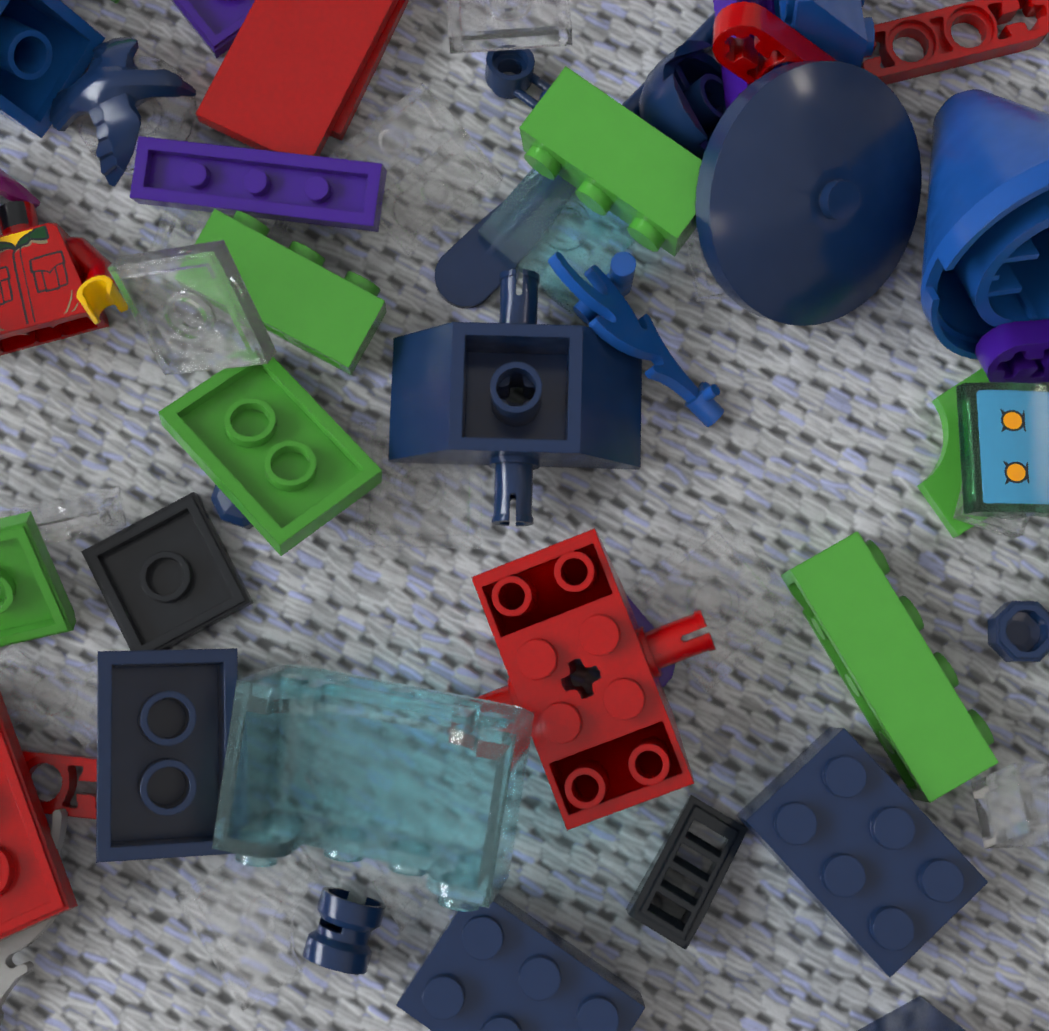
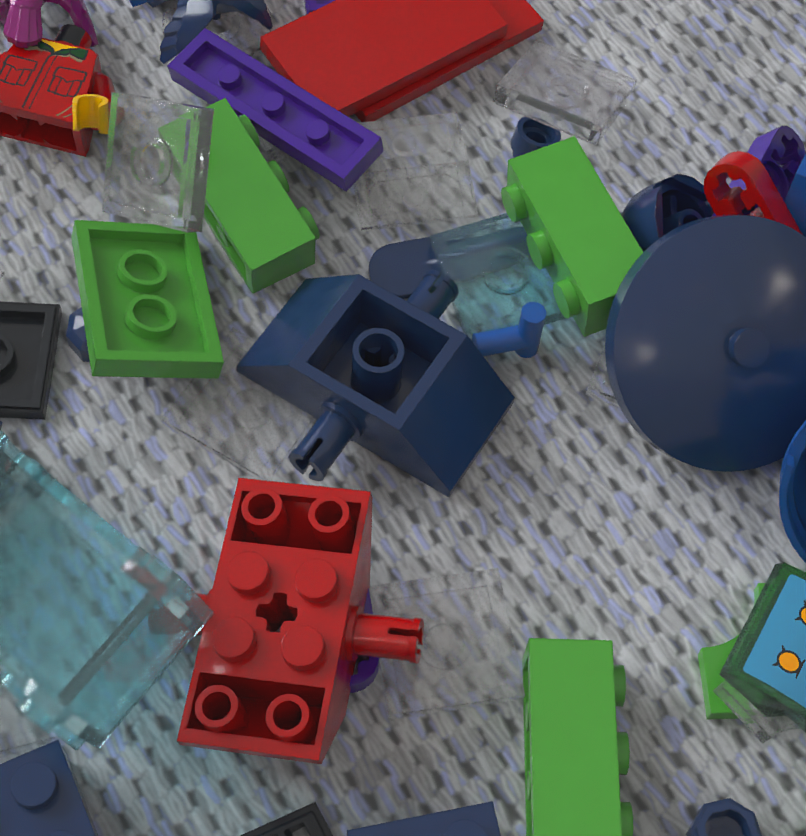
camera: 20 degrees right, 20 degrees down
(636, 337) = (501, 361): blue piece -> none

